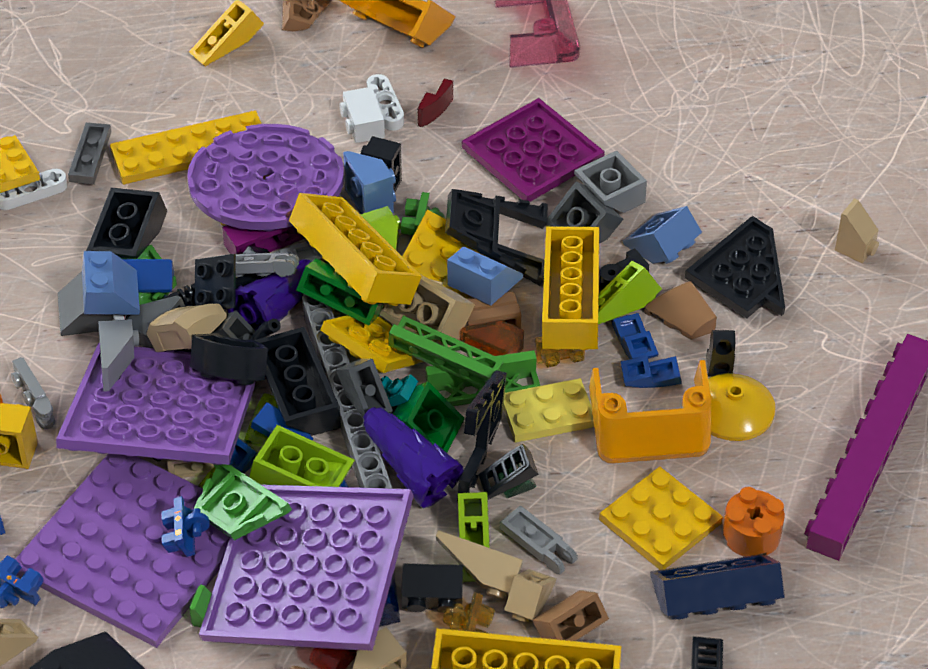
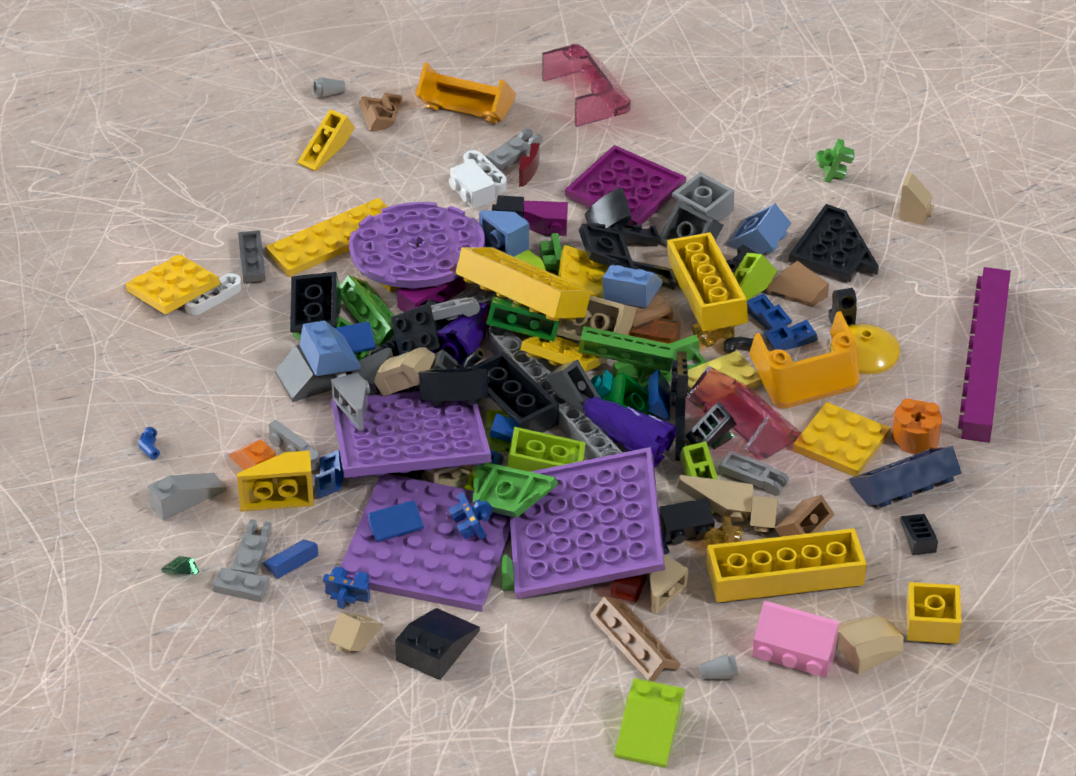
camera: 15 degrees left, 5 degrees down
(46, 445) = (330, 474): none -> blue slope
(98, 513) = (395, 521): none -> blue slope
(184, 240) = (367, 307): none -> bright green fence
(428, 169) = (547, 217): none -> magenta slope
(429, 81) = (513, 149): none -> light grey hinge
(456, 427) = (659, 395): none -> blue slope
(498, 177) = (610, 210): none -> black slope
(561, 459) = (755, 419): none -> clear pink windscreen
(585, 367) = (737, 342): none -> black arm
(777, 165) = (831, 160): none -> bright green hips

